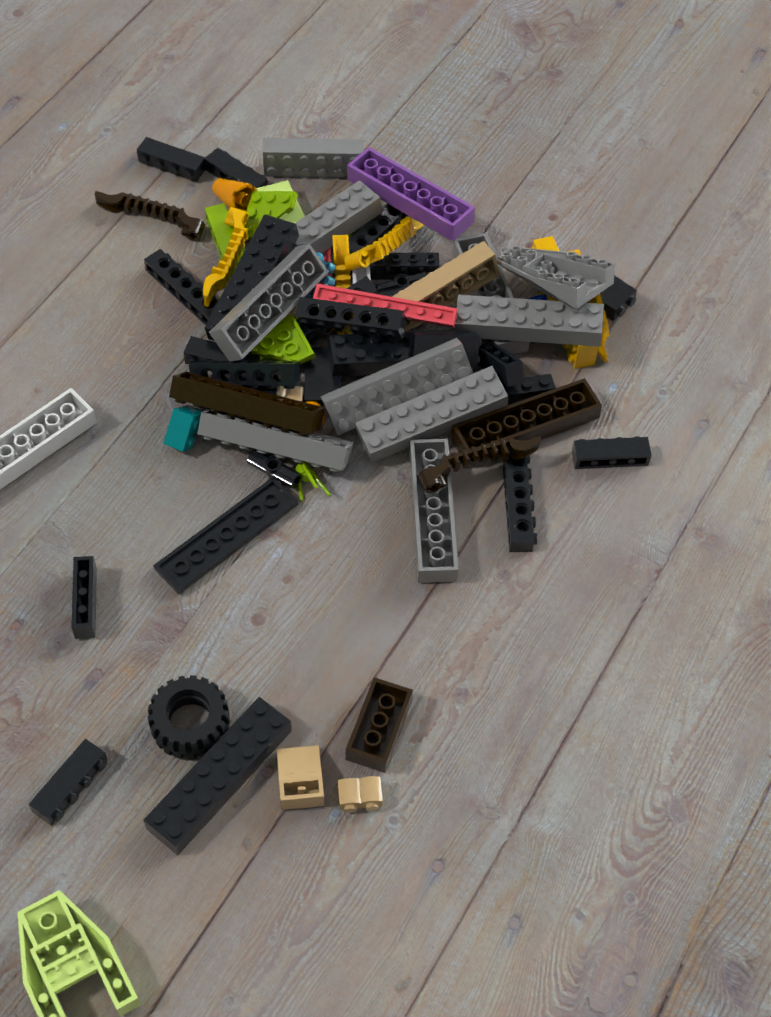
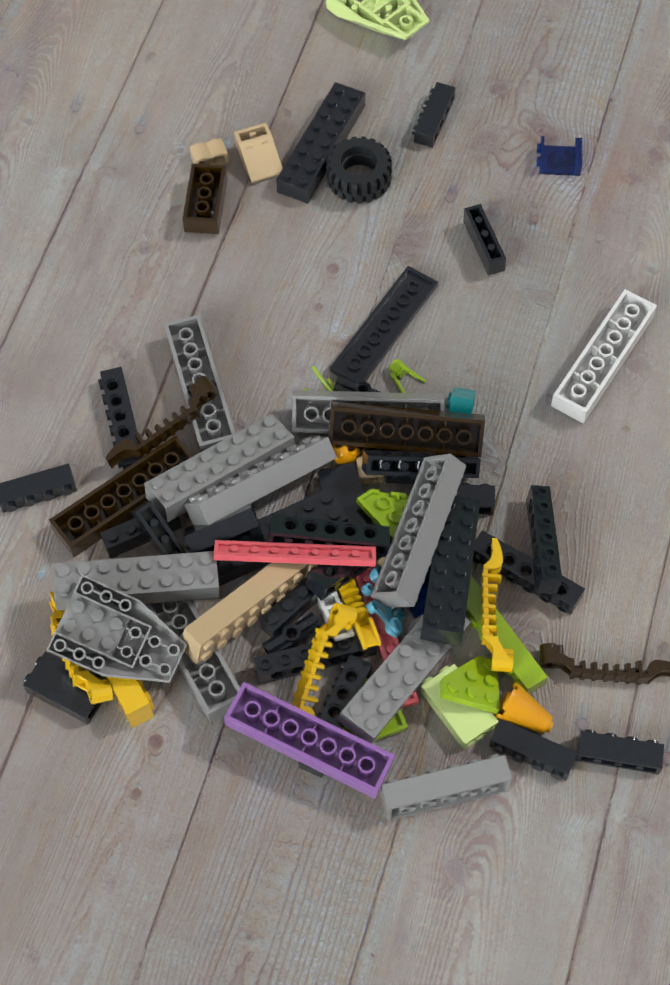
camera: 170 degrees right, 5 degrees up
(161, 297) = (543, 539): none -> black brick
(228, 486) = (400, 370): none -> lime plant

